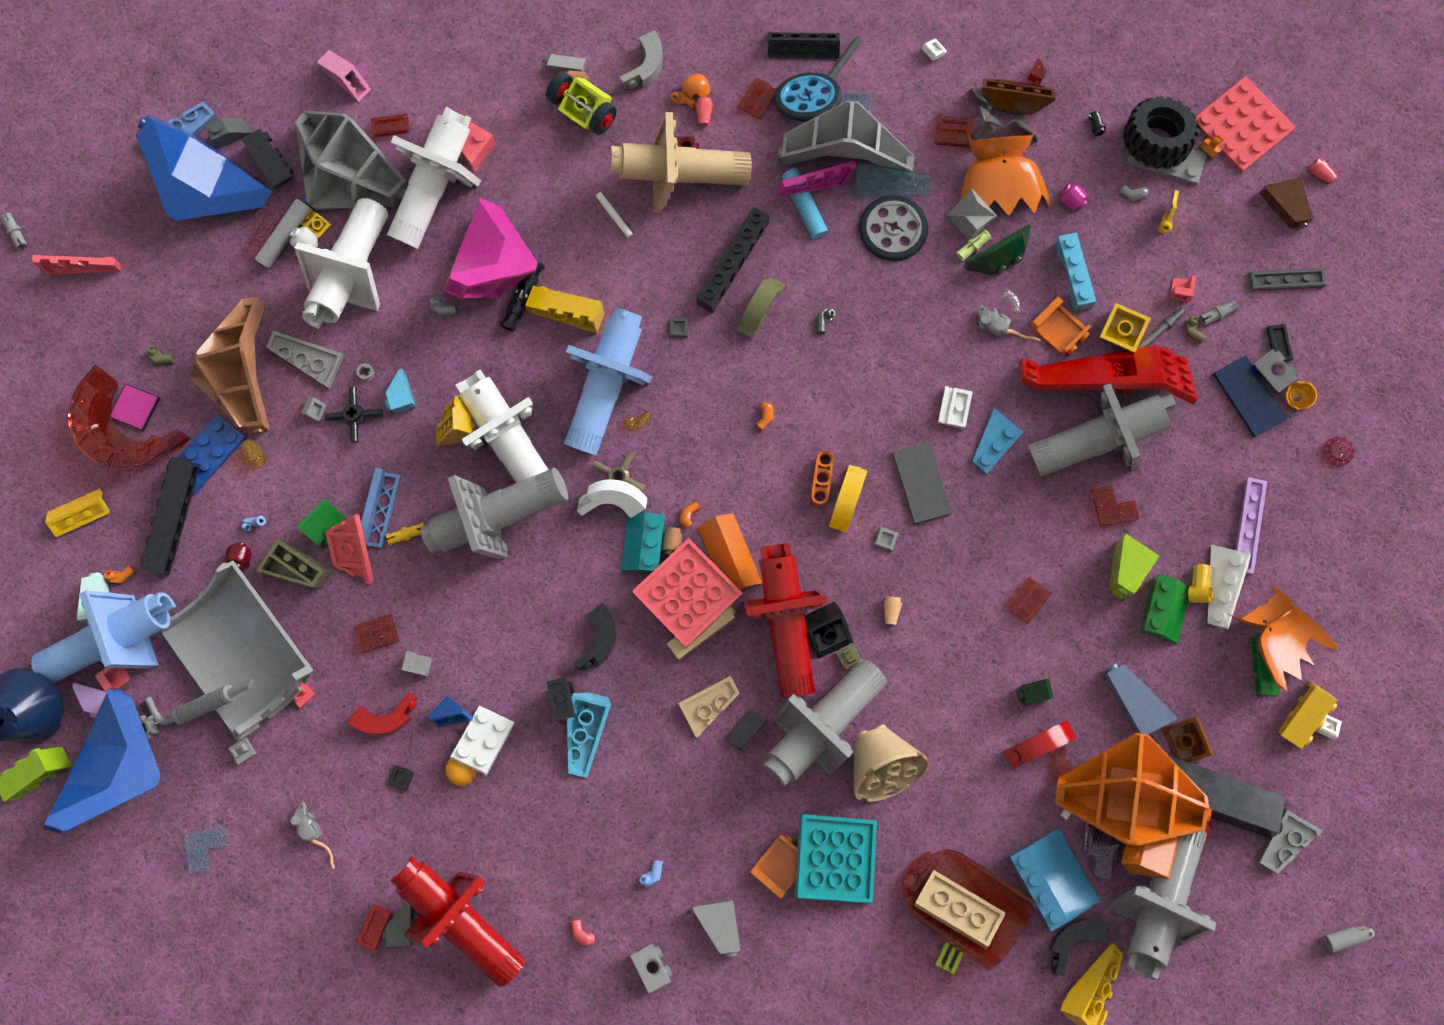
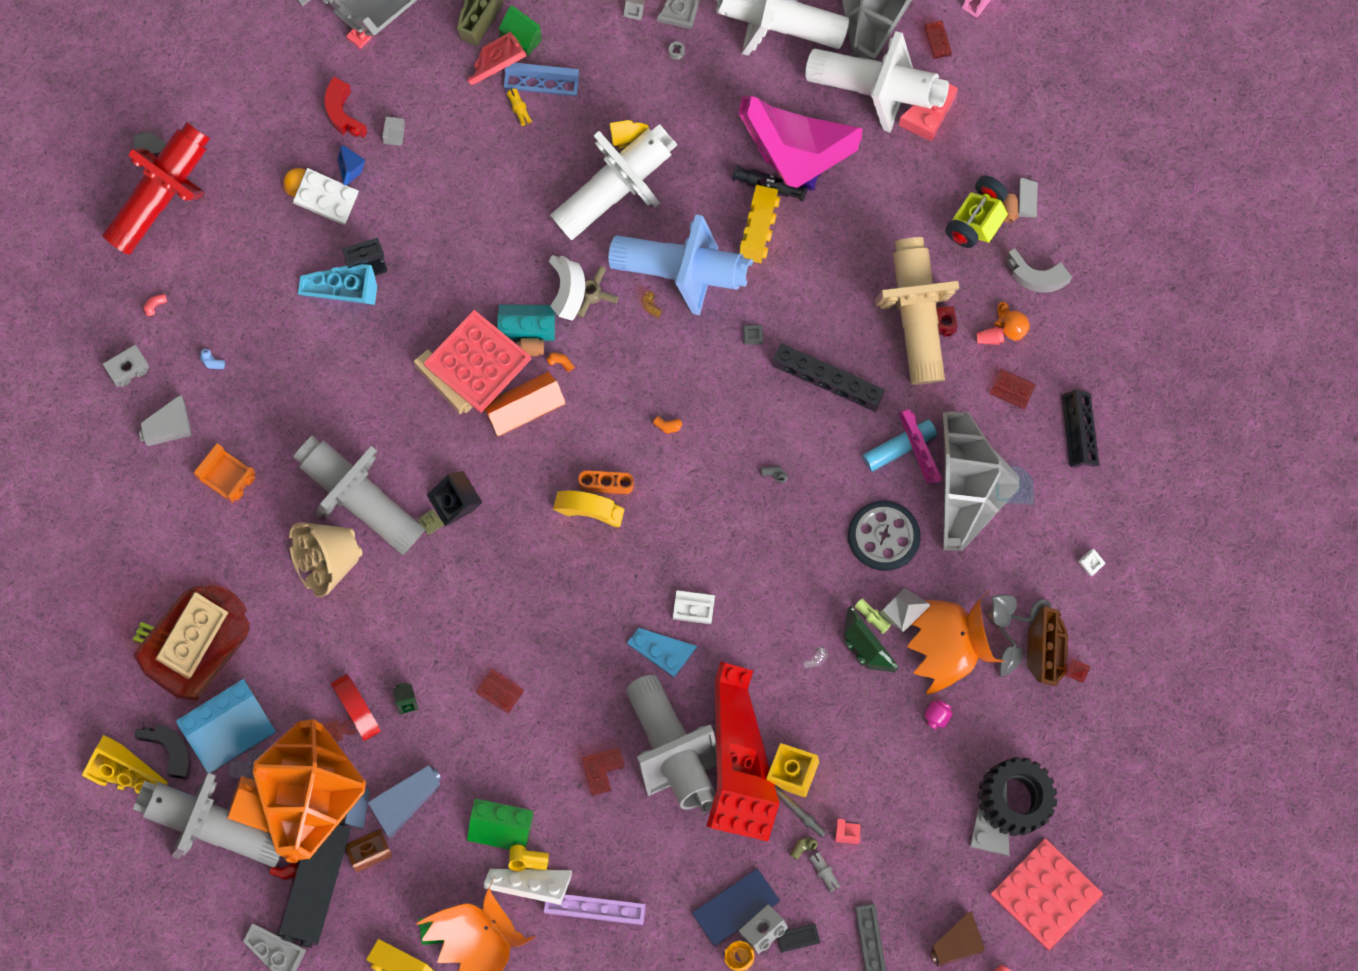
camera: 80 degrees right, 5 degrees down
(308, 829) = (236, 57): light grey animal -> none
(357, 418) = (630, 50): black bar -> none
(374, 927) = (151, 124): red plate -> none
(376, 633) = (420, 93): clear red plate -> none
(399, 394) = (656, 83): medium azure slope -> none
(401, 777) = (287, 131): black tile -> none
(483, 515) = (536, 165): light grey piece -> none
(605, 640) = (430, 296): black arch -> none
(611, 211) = (867, 261): white bar -> none
(708, 704) = (374, 395): tan wing -> none
(746, 729) = (352, 432): black panel -> none
(759, 306) = (781, 405): olive arch -> none
(785, 610) = (466, 449): red piece -> none
(802, 81) = (1038, 430): dark azure wedge -> none
(835, 858) = (233, 520): teal plate -> none
(845, 57) = (1070, 472): dark grey bar -> none
(886, 181) = (930, 517): clear light blue wing -> none
(886, 539) = (551, 550): light grey tile -> none
(892, 608) = (480, 559): light nougat cone -> none
(921, 483) = (612, 580): dark grey tile -> none
(953, 135) = (995, 583): clear red plate -> none
(997, 324) = (787, 643): light grey animal -> none
(1060, 328) = (790, 708): orange panel -> none
(1072, 258) = (848, 718): medium azure arch -> none
(1097, 124) = (1027, 736): black pin -> none
(1130, 567) = (537, 782): lime slope -> none
(1134, 195) = (949, 779): light grey arm -> none
(1166, 223) = (918, 810): yellow arm -> none
(1211, 146) = (1013, 858): orange tile -> none

